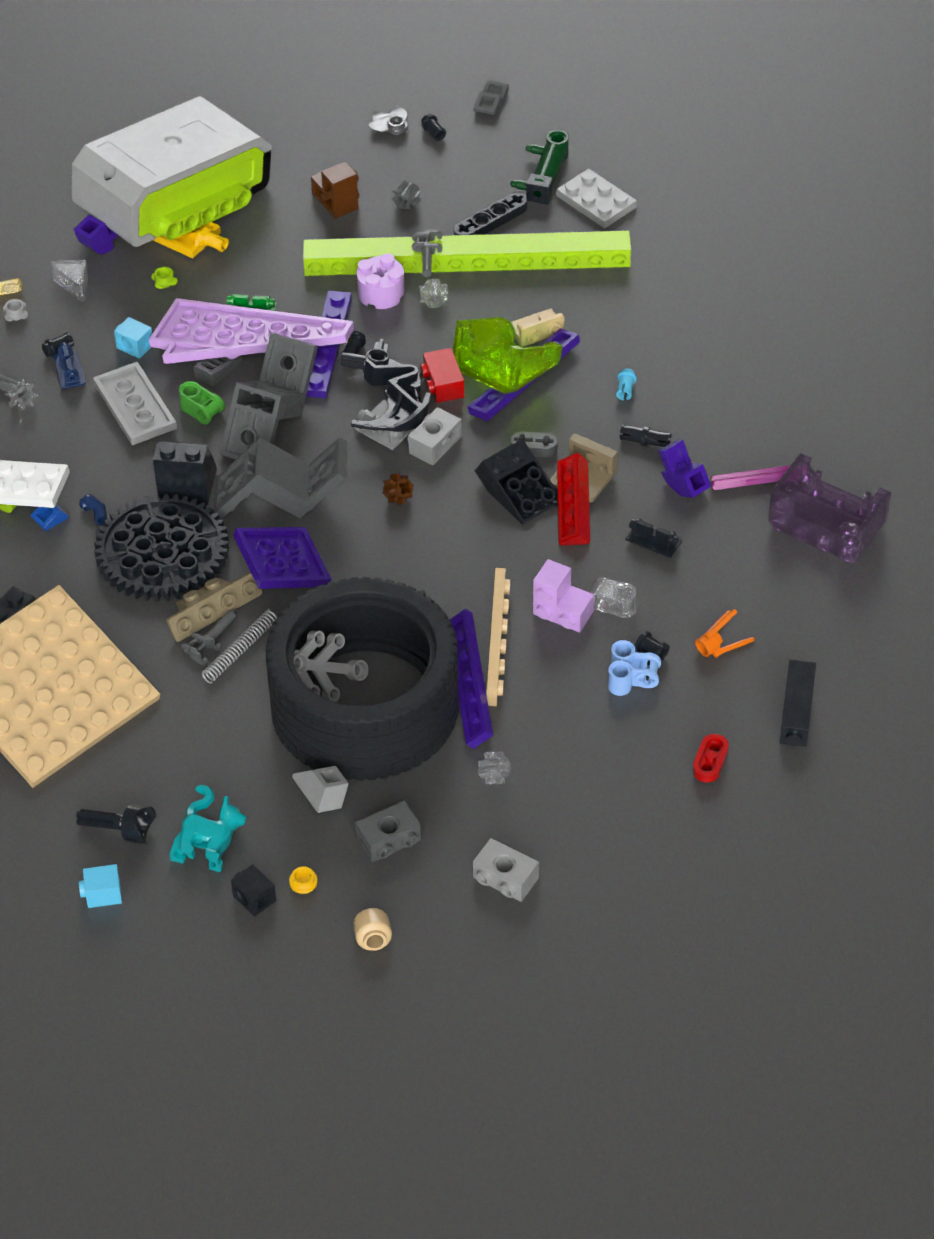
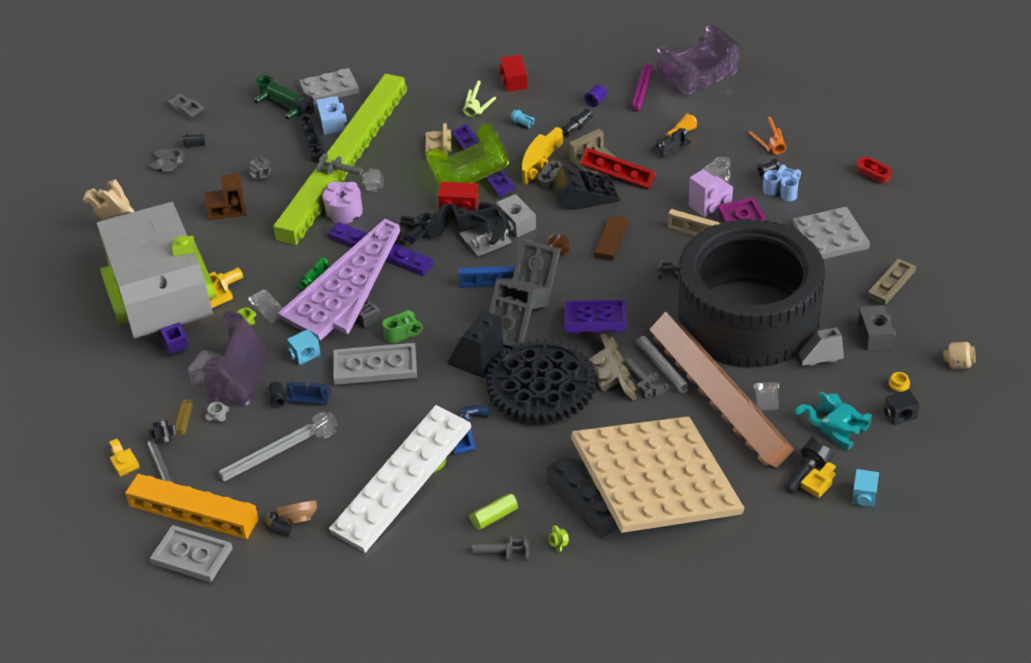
camera: 65 degrees left, 5 degrees down
(78, 293) = (237, 375): none -> clear purple windscreen
(99, 838) = (819, 482): none -> yellow plate
(169, 166) = (183, 245): none -> lime plate
(190, 721) = (722, 391): none -> nougat brick
(193, 286) = (266, 305): none -> clear tile
(220, 754) = (766, 396): none -> clear tile
(264, 104) = (109, 203): none -> tan animal
(273, 397) = (444, 281): dark grey bracket -> none
(309, 436) = (484, 276): none -> blue plate
(445, 536) = (611, 237): none -> reddish brown tile
(482, 827) = (891, 282): none -> dark tan plate
(494, 767) = (842, 262): clear gear -> none
(520, 870) = (932, 281): light grey brick -> none
(535, 215) = (331, 115): none -> light blue brick
(544, 646) = (741, 209): none -> magenta plate
(559, 417) = (537, 153): none -> yellow slope
(559, 746) = (832, 232): none -> light grey plate
(622, 331) = (472, 105): none -> yellowish green plant
(680, 473) = (624, 115): dark purple brick -> none
(700, 540) = (688, 122): none -> light orange cone
(710, 346) = (513, 73): none -> red brick
(711, 436) = (595, 95): none -> dark purple beam
(797, 703) = (852, 118): black slope -> none

